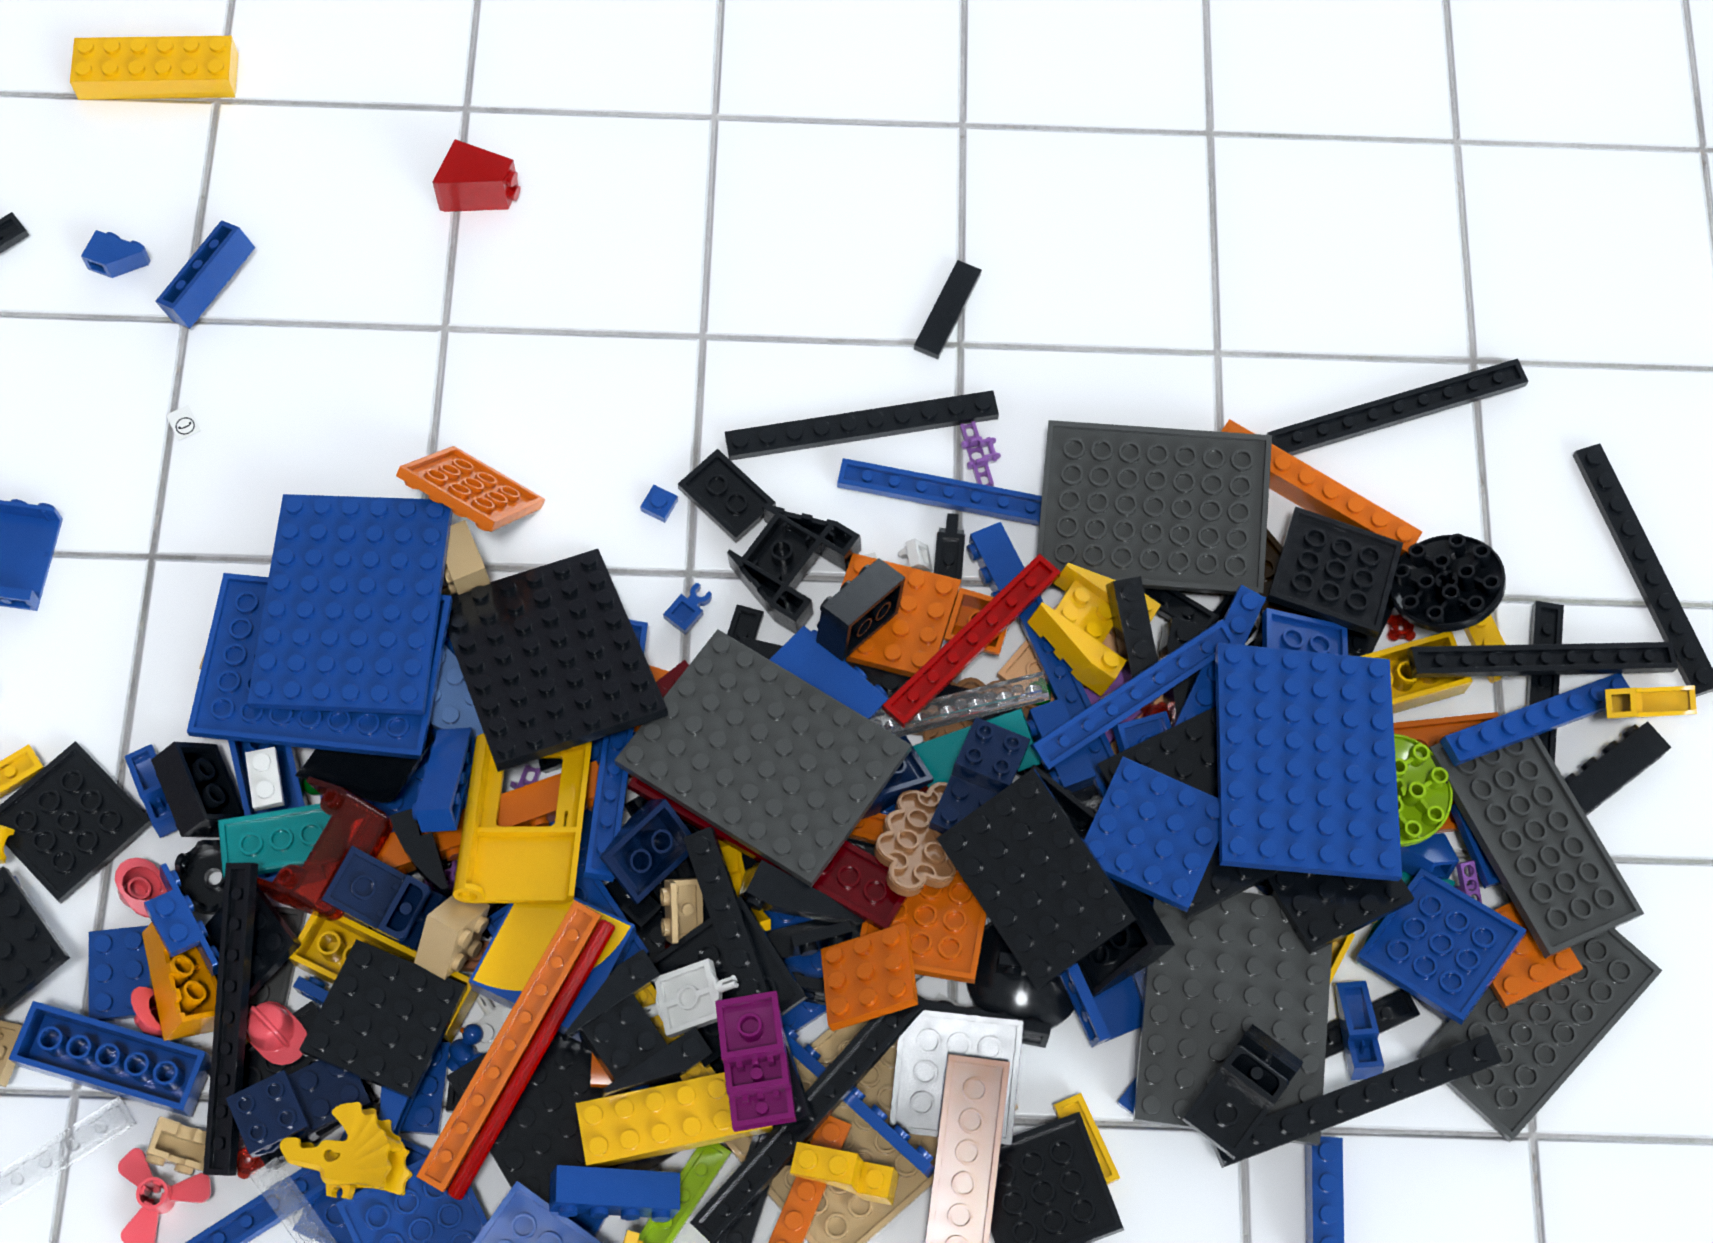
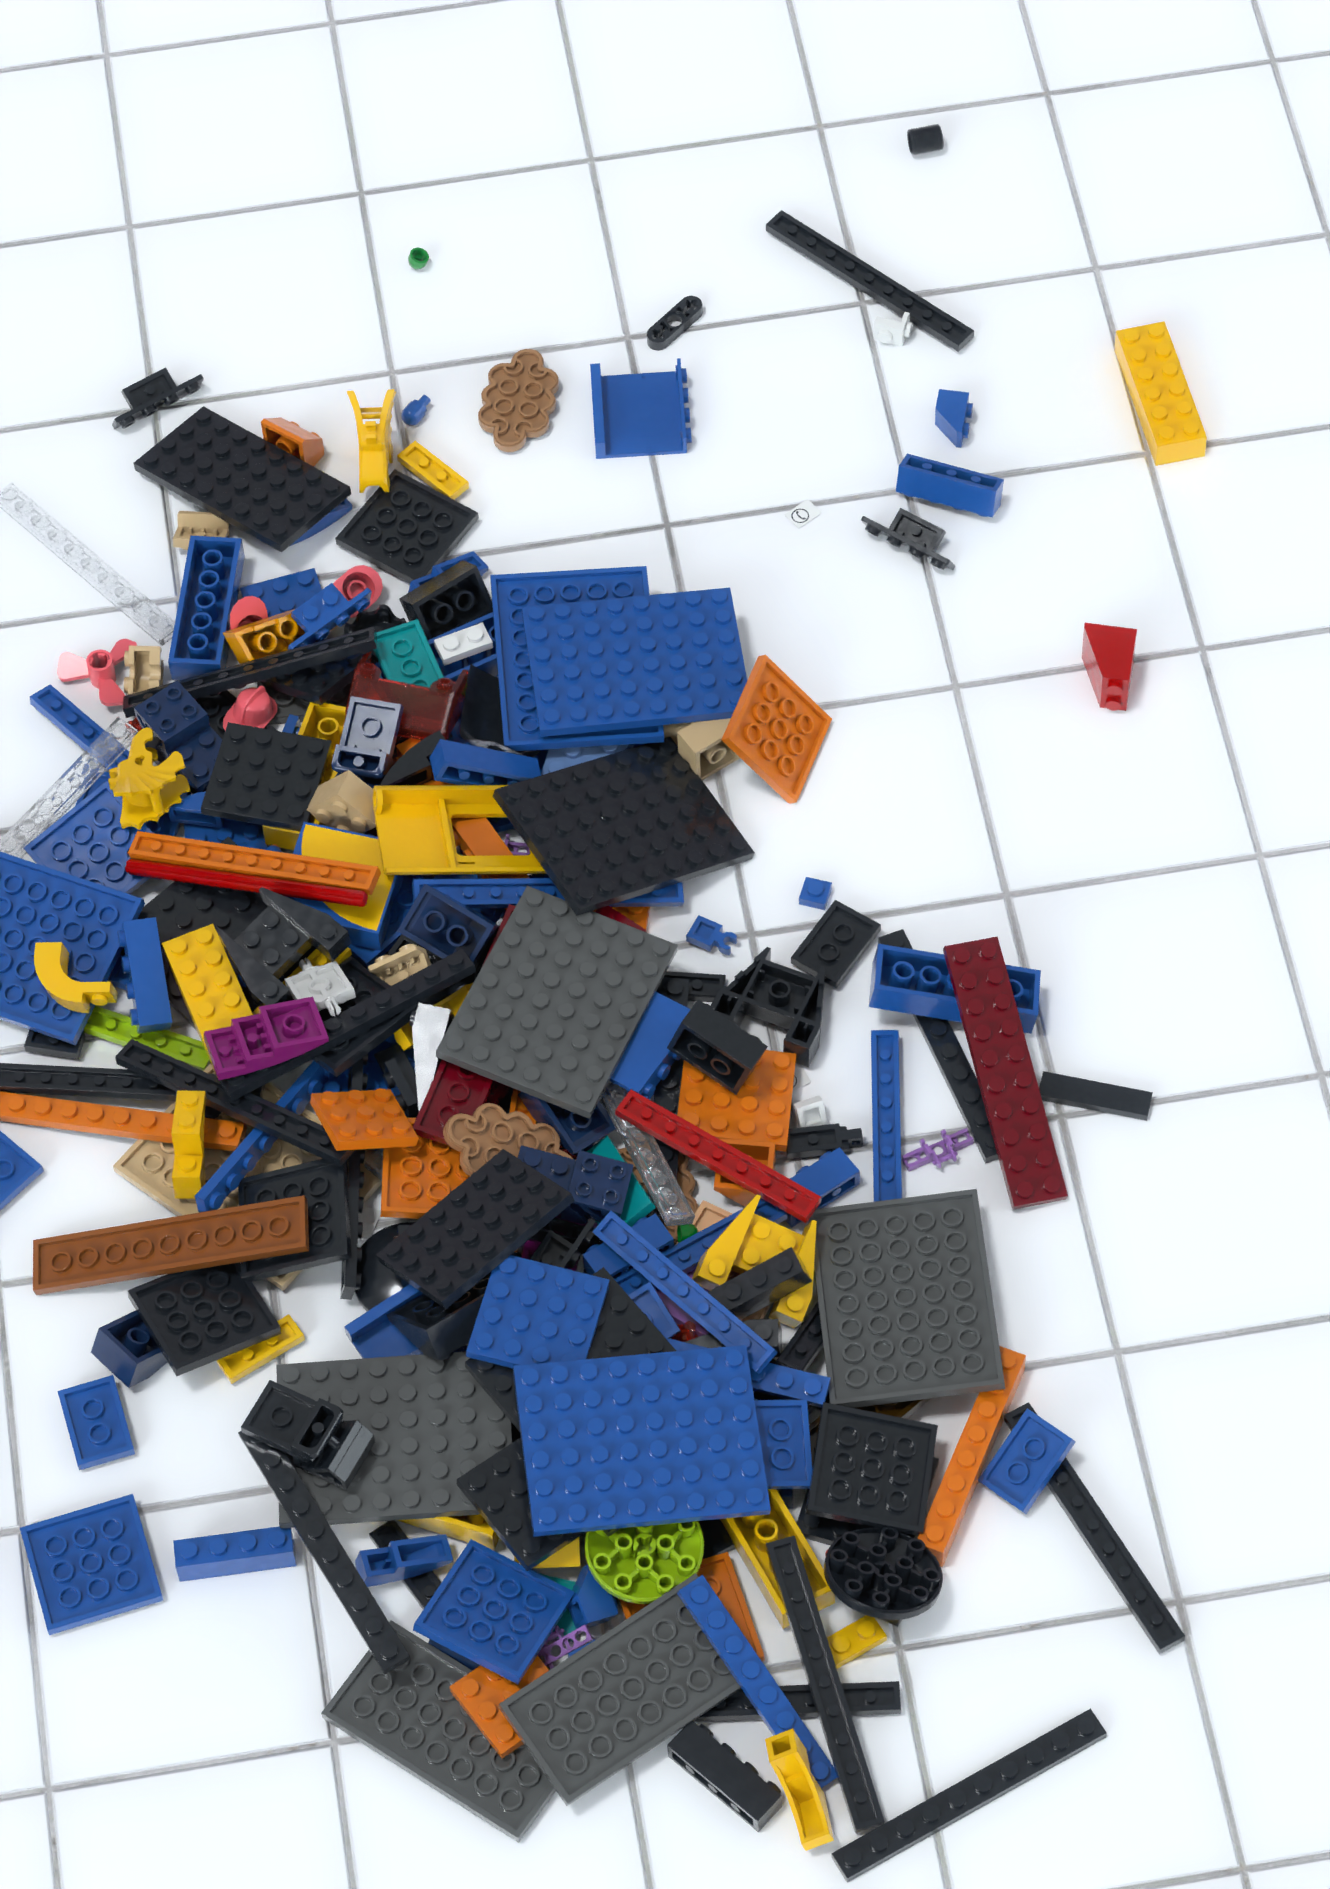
camera: 85 degrees right, 10 degrees down
(252, 320) = (913, 533): none -> black bracket
(818, 394) = (922, 986): none -> blue brick
(922, 368) = (1005, 1073): none -> dark red plate
(1333, 442) = (1026, 1461): none -> blue plate

